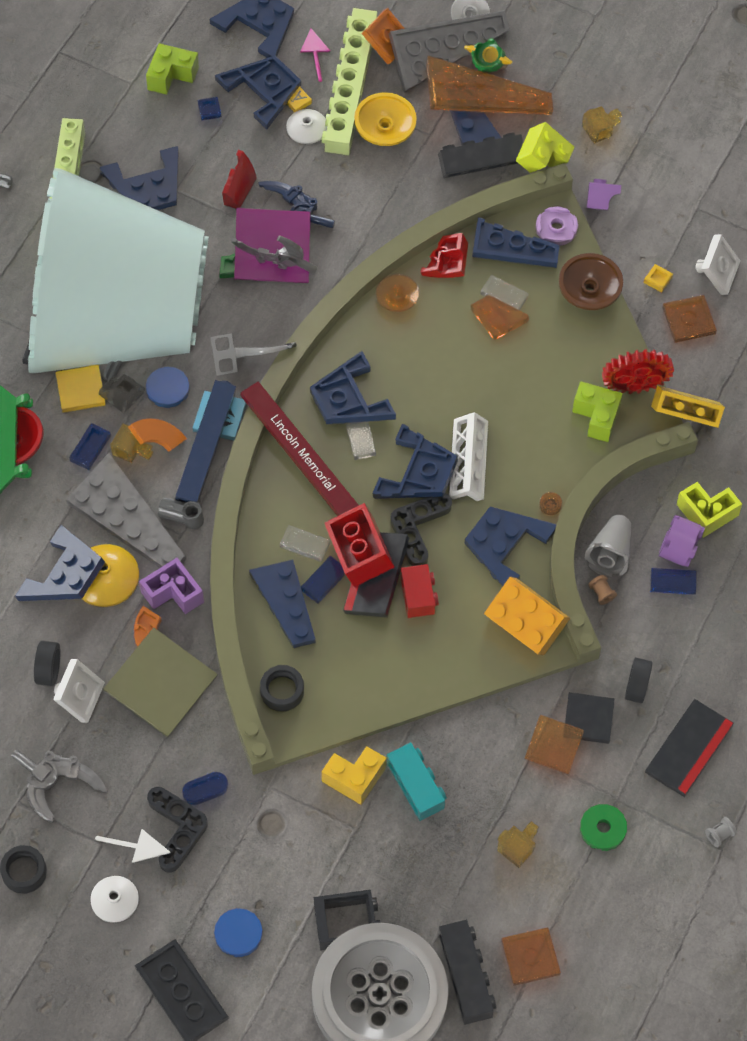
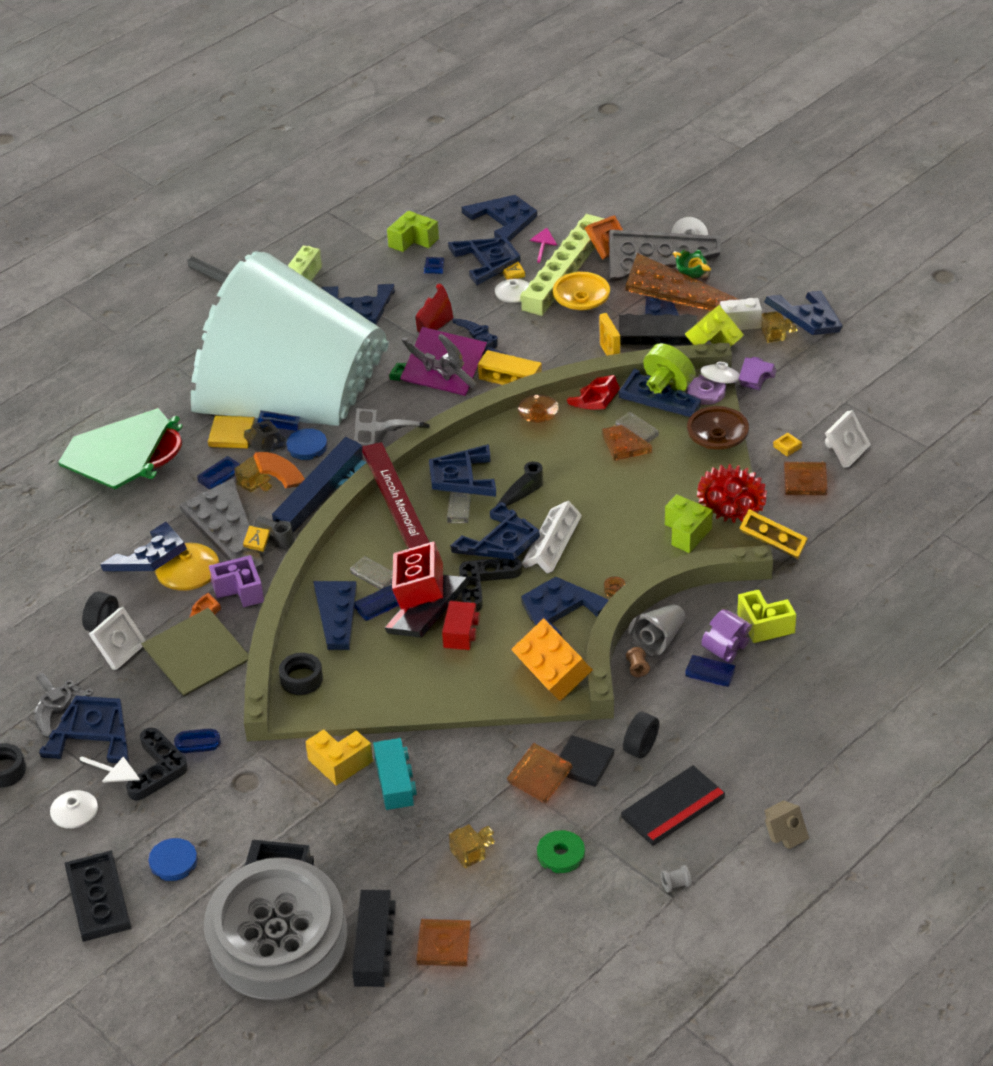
camera: 20 degrees right, 20 degrees down
(94, 793) = (90, 720): none -> dark blue wing
(129, 365) = (280, 420): none -> clear blue tile
(169, 528) = (256, 538): none -> yellow tile
(345, 242) = (505, 368): none -> yellow brick
(417, 396) = (525, 485): none -> black piece
(439, 182) = (608, 336): none -> yellow tile
(518, 219) = (668, 366): none -> lime piece
(561, 114) = (744, 312): none -> white brick
(566, 204) = (720, 373): none -> white dish
(635, 105) = (814, 317): none -> dark blue wing

